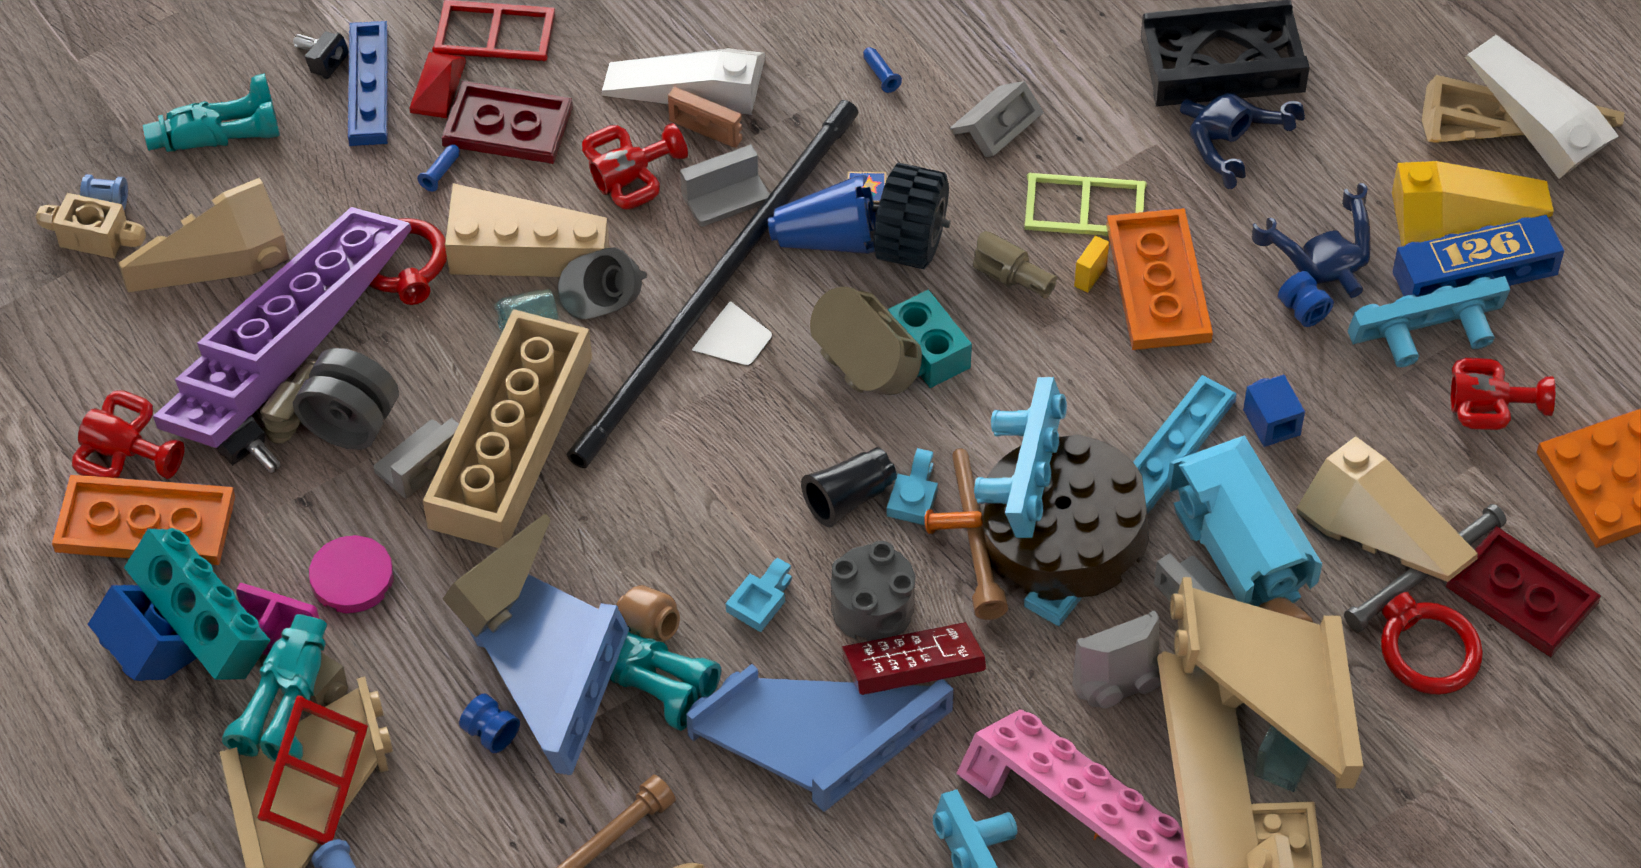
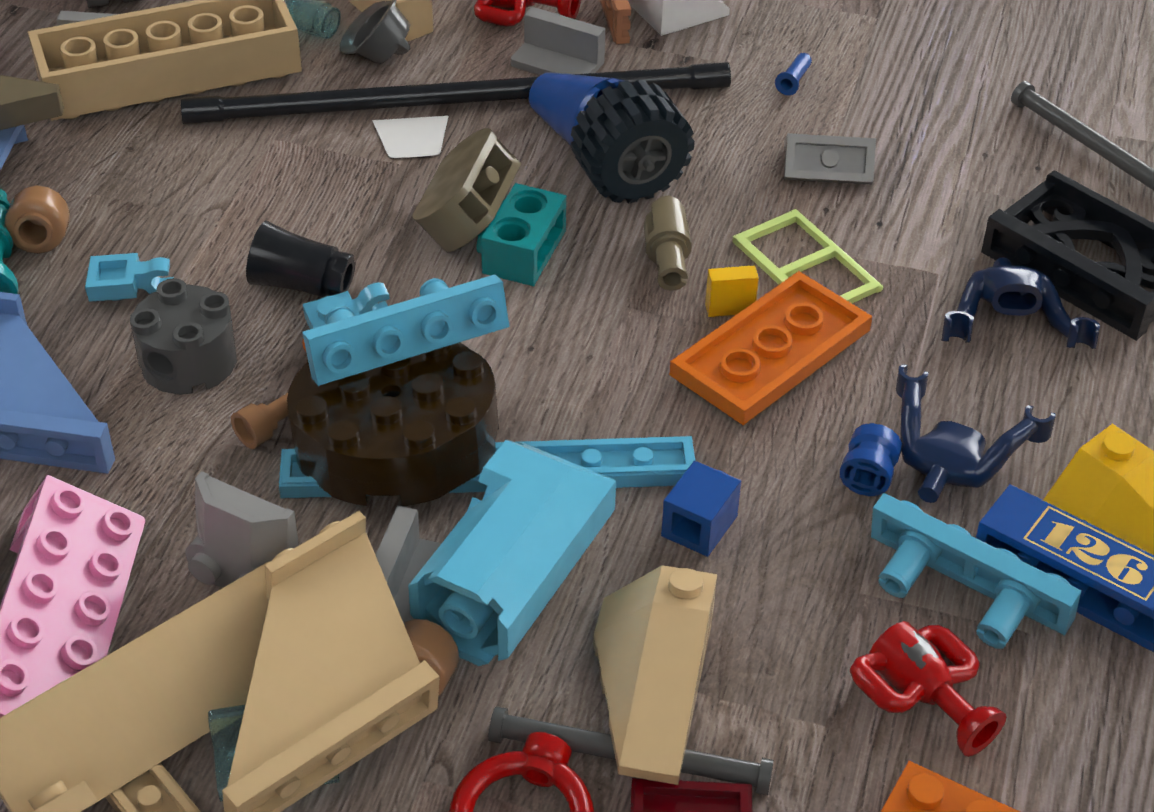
camera: 50 degrees right, 10 degrees down
(913, 658) = (125, 400): dark red tile -> none

